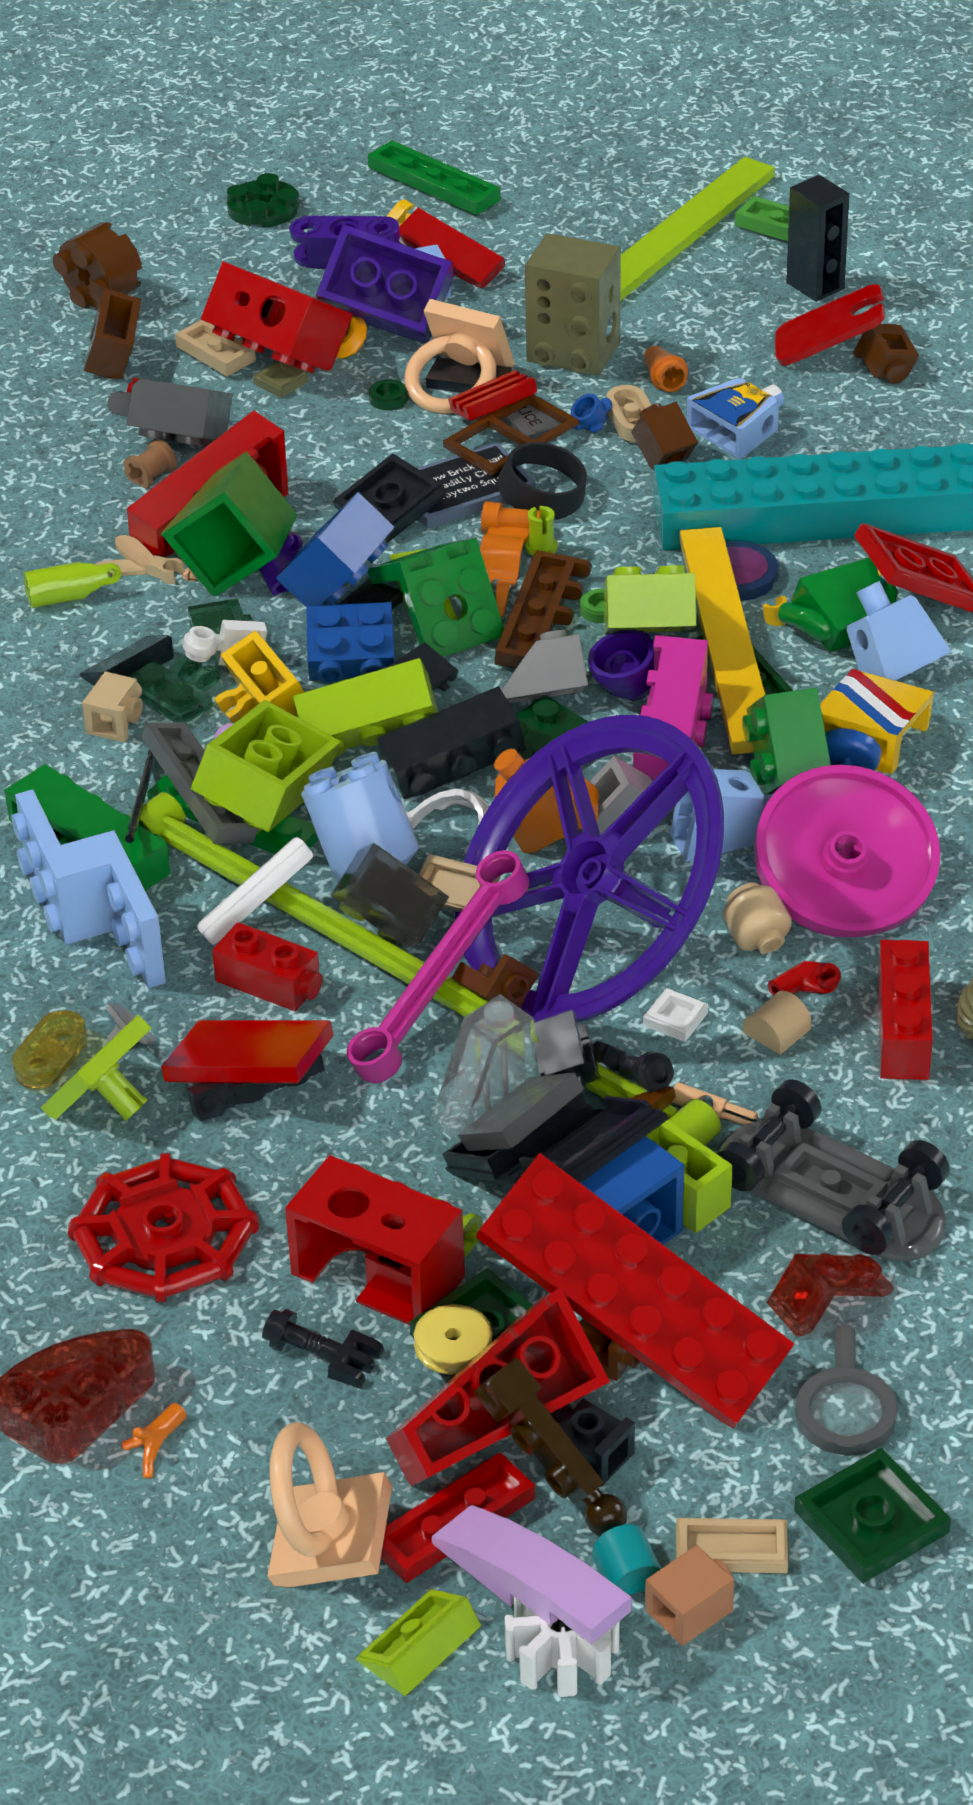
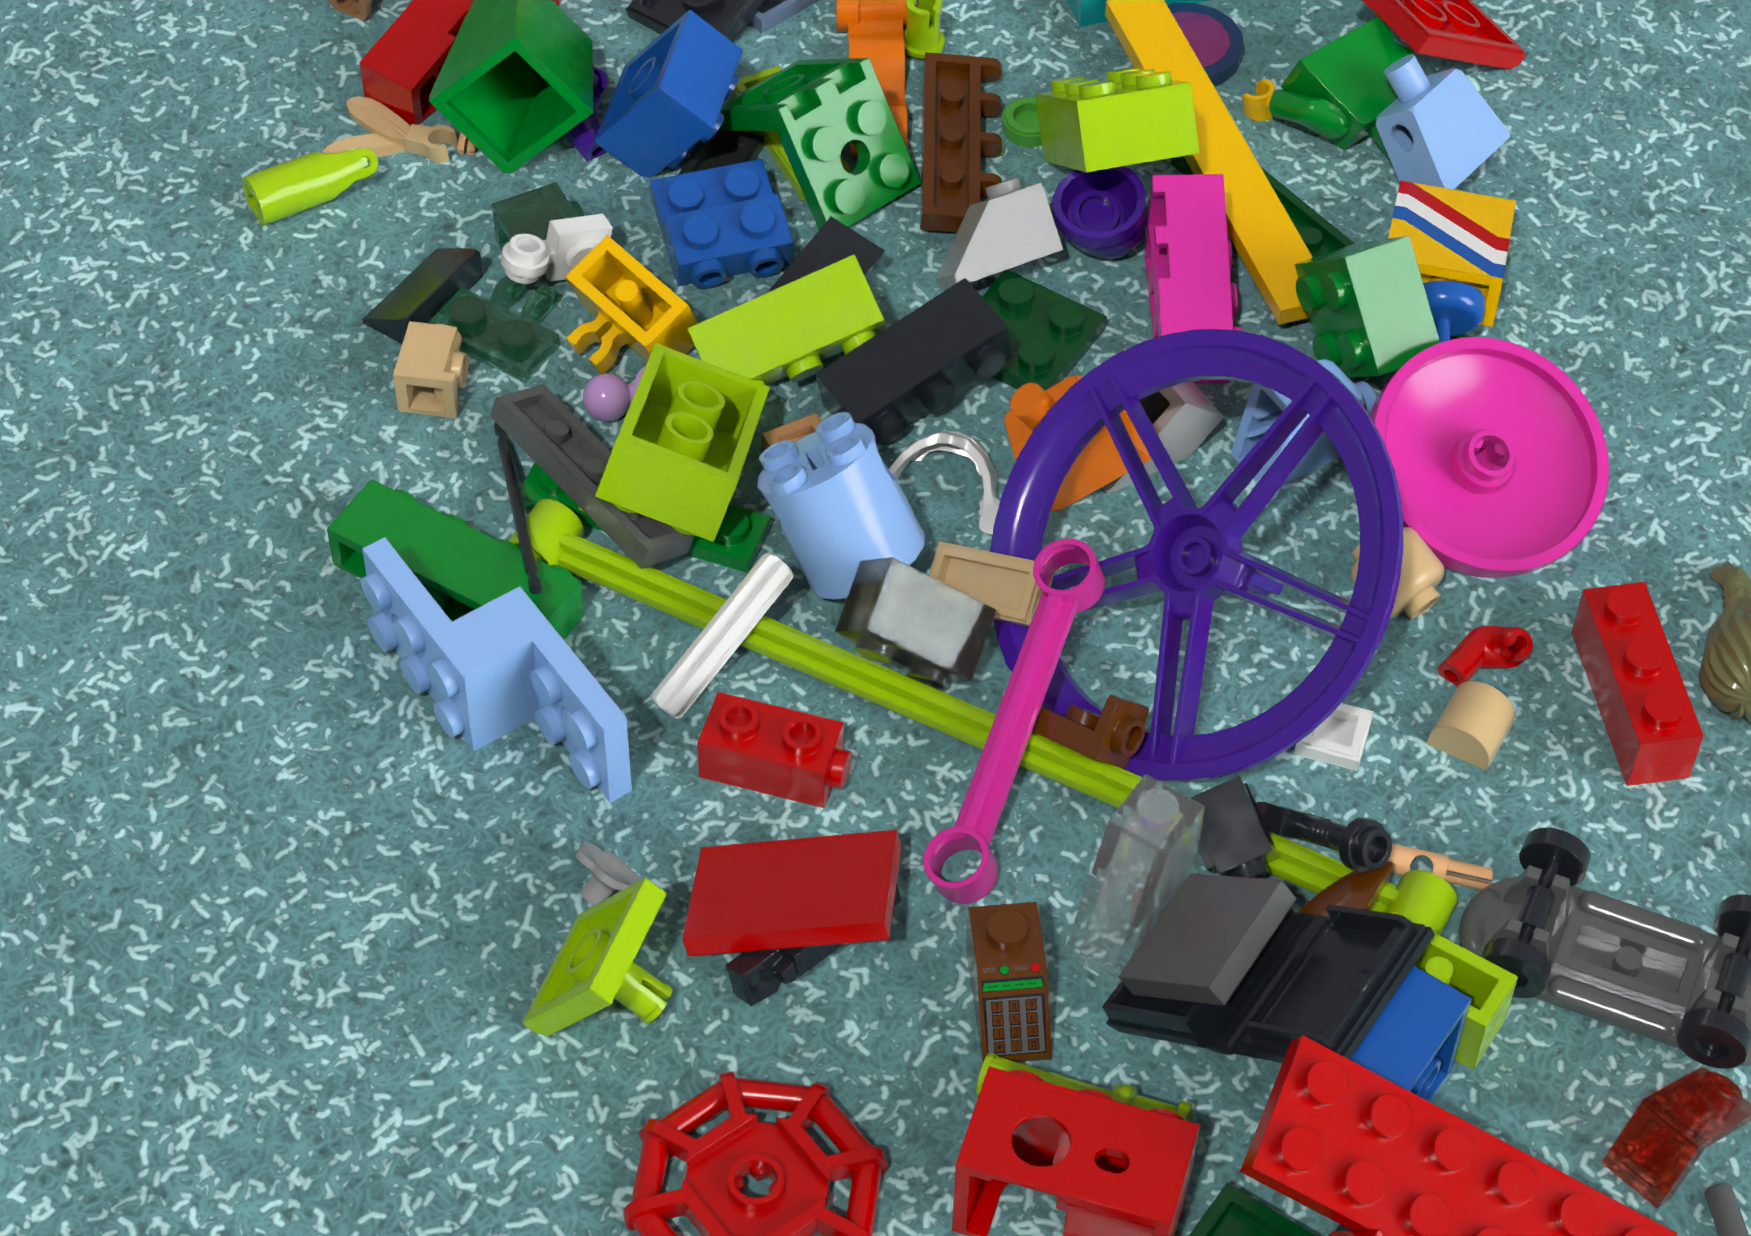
camera: 15 degrees left, 10 degrees up
(42, 1056) = (506, 932): clear yellow plate -> none
(381, 1122) = (1009, 981): none -> reddish brown slope

